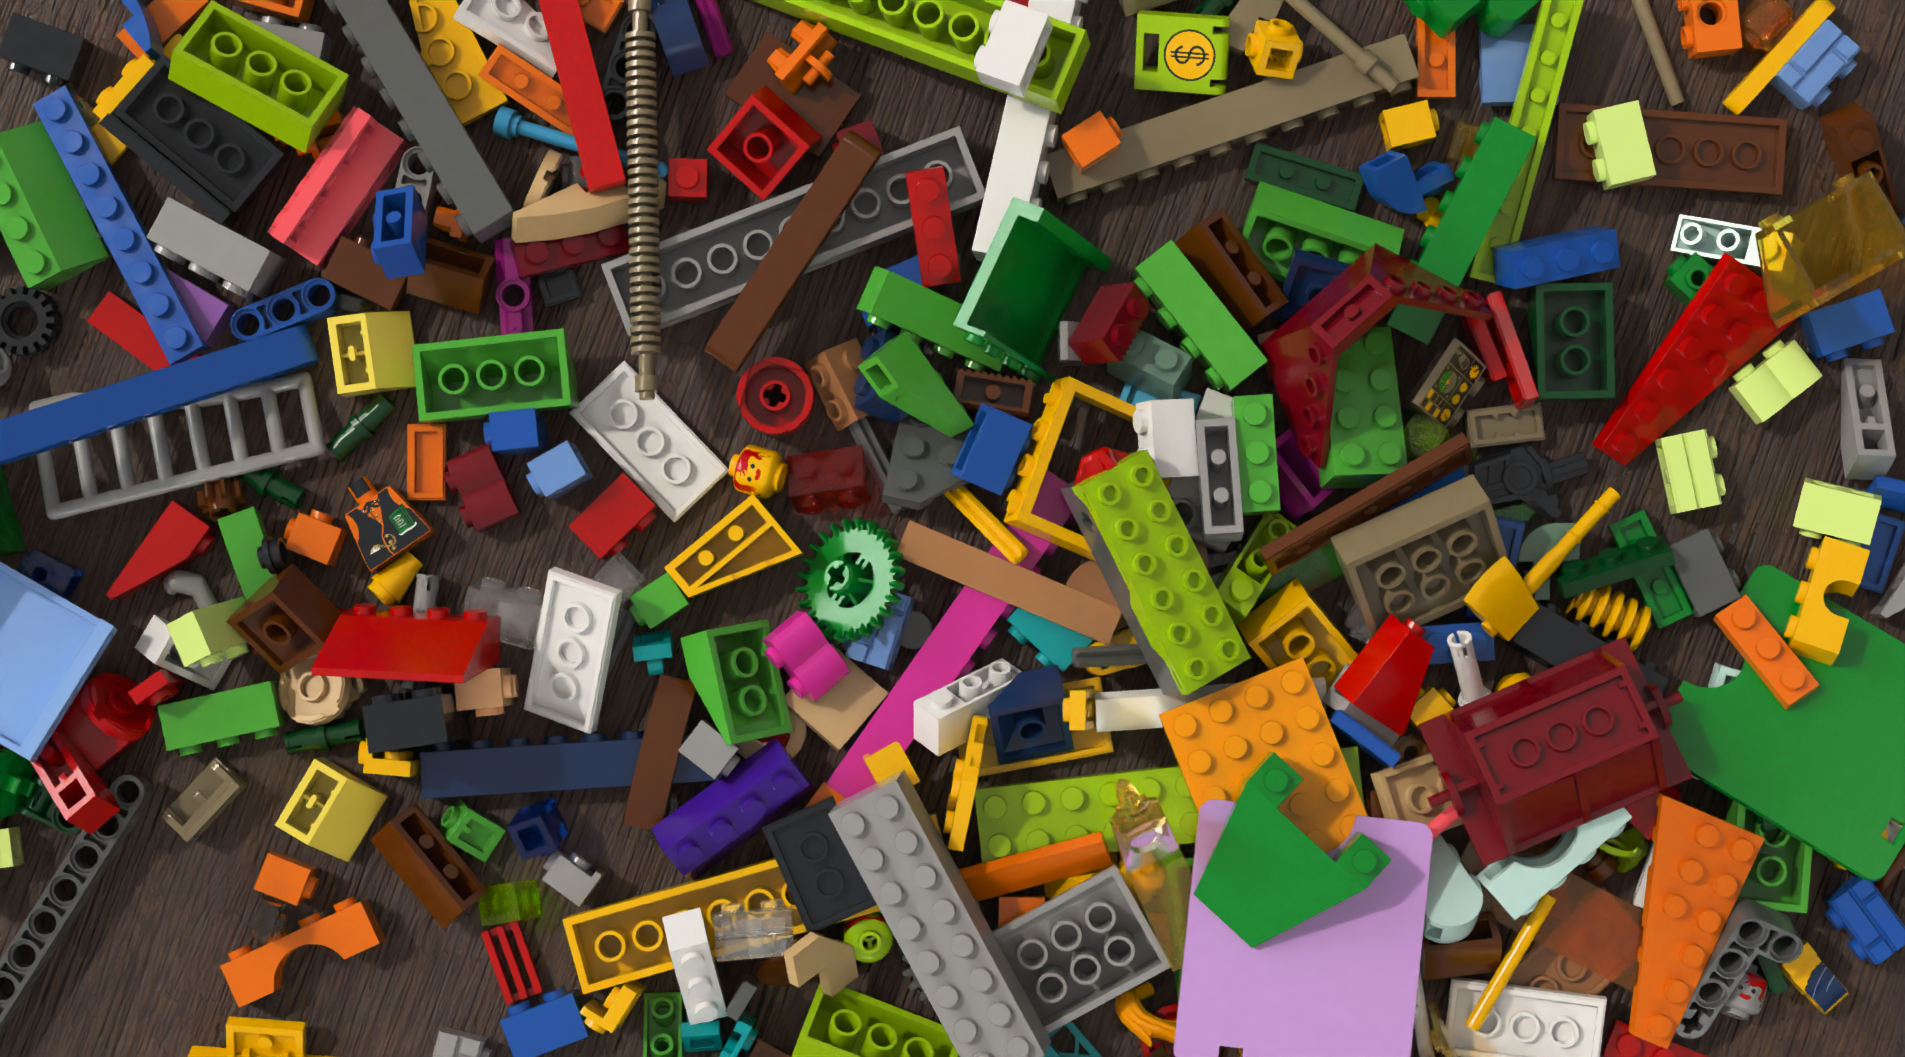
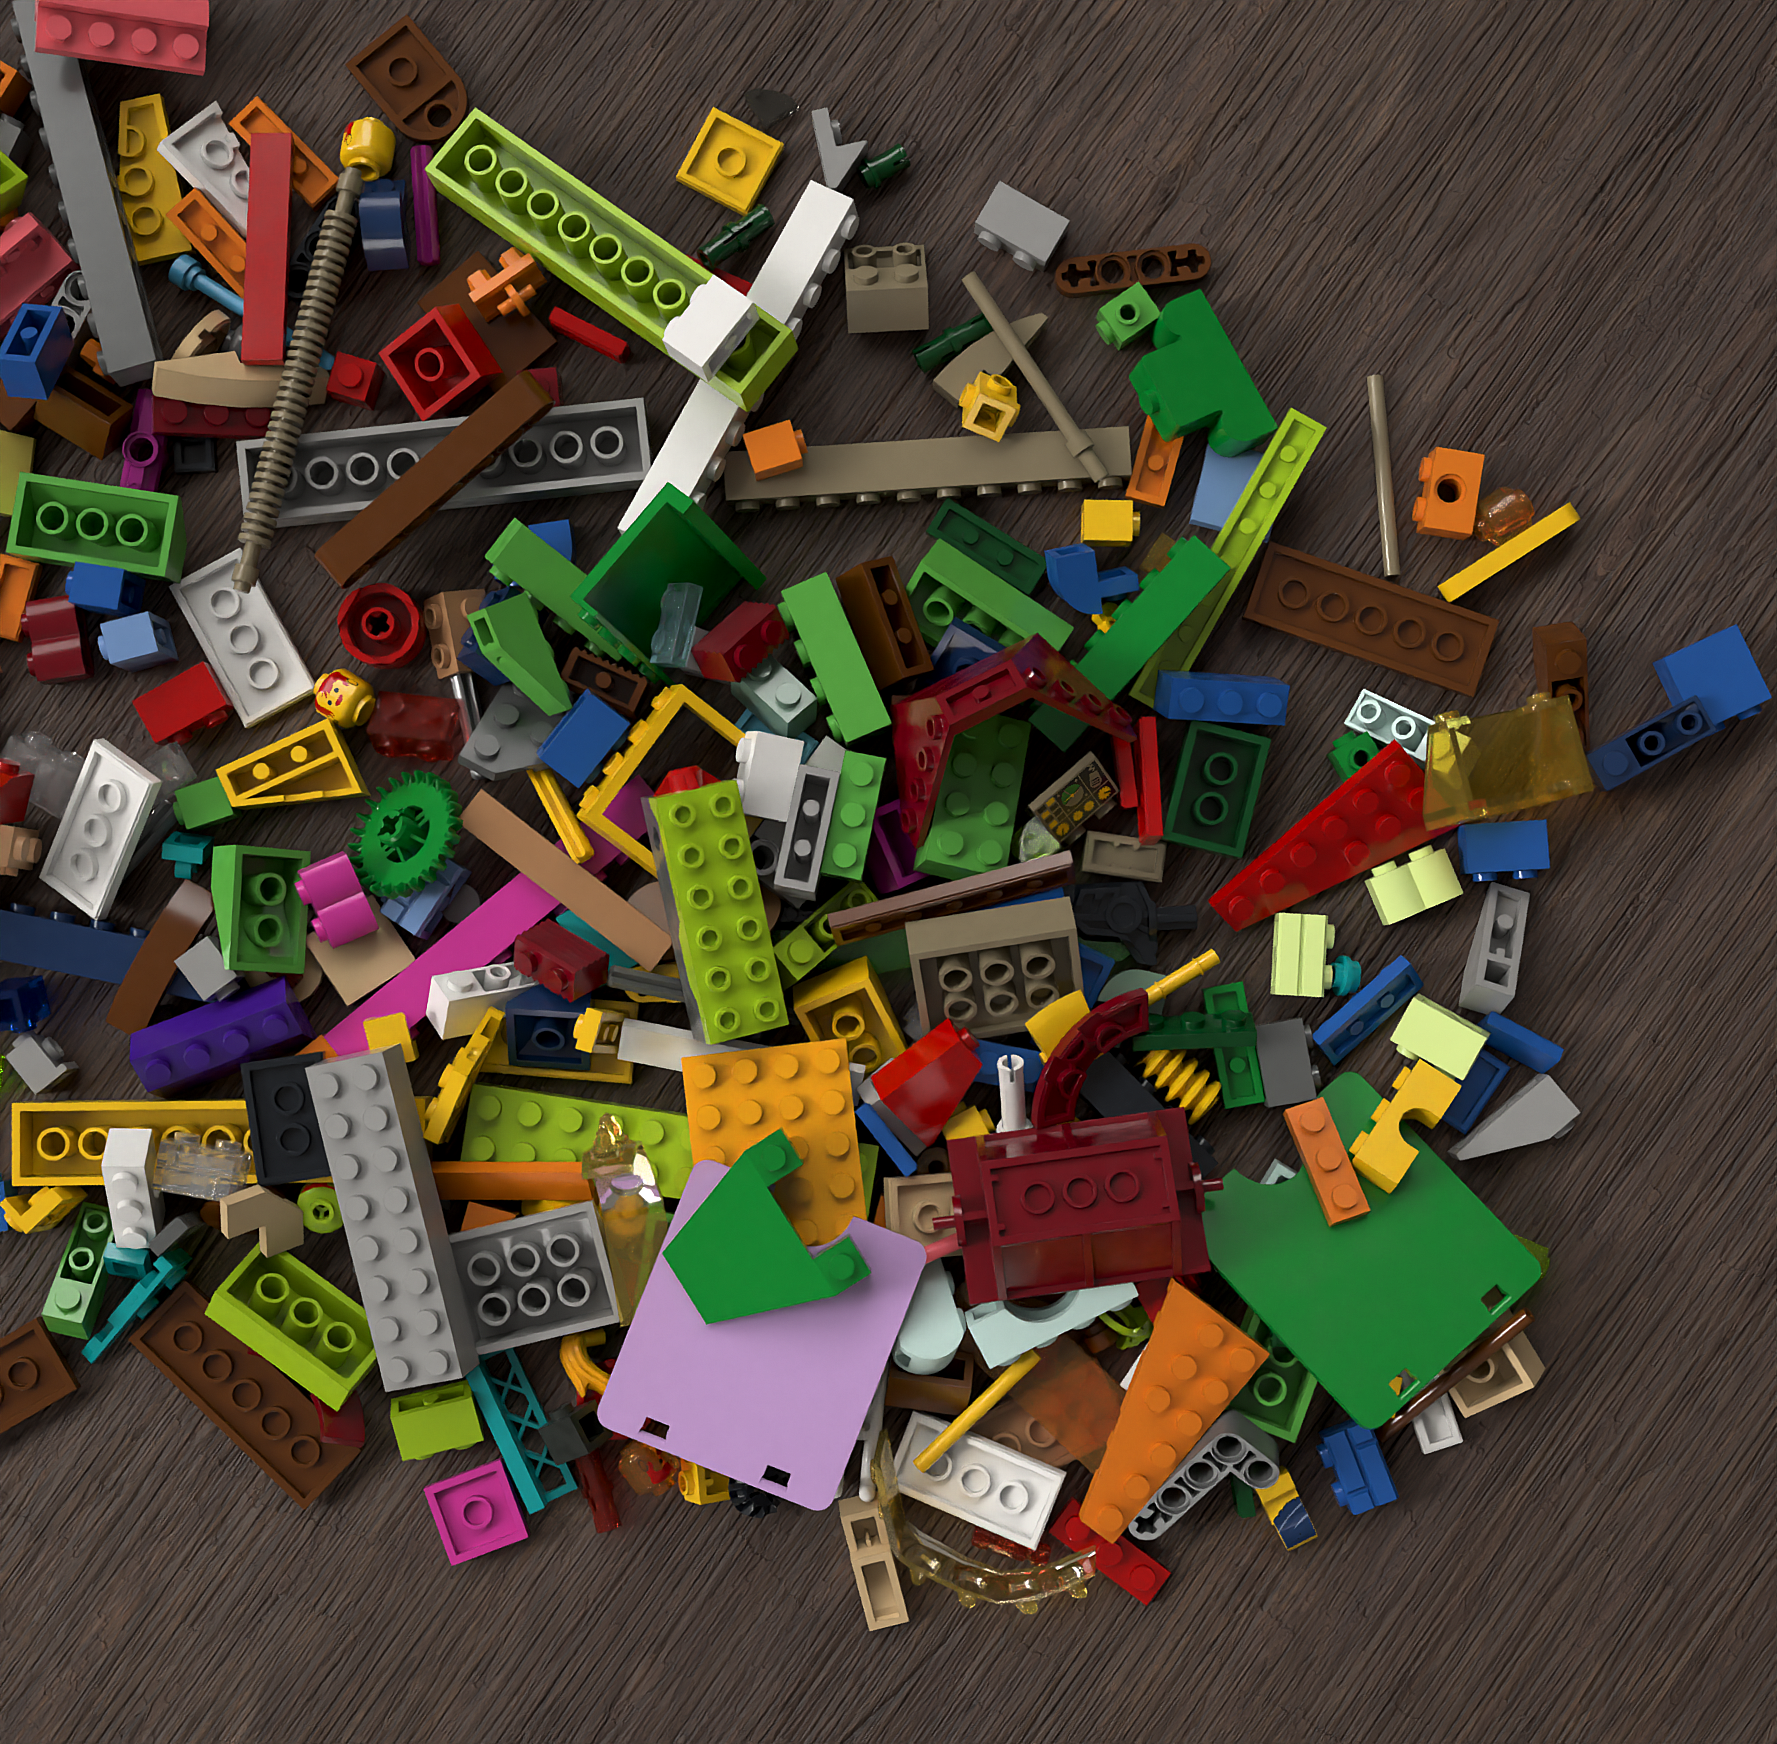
camera: 10 degrees right, 0 degrees up
(890, 81) = (589, 335): none -> red tile
(932, 226) = (586, 493): red plate -> none
(1024, 656) = (560, 960): none -> dark red brick
(1048, 324) = (676, 624): none -> clear light blue plate
(1187, 53) = (900, 385): lime container -> none
(1510, 625) = (1093, 1034): none -> dark red tile
(1619, 145) = (1317, 600): yellowish green brick -> none
(1736, 479) = (1345, 976): none -> teal plate
(1747, 996) = (1212, 1509): light grey head -> none
(1763, 504) = (1367, 1010): none -> blue plate
(1815, 66) = (1542, 573): medium blue brick -> none

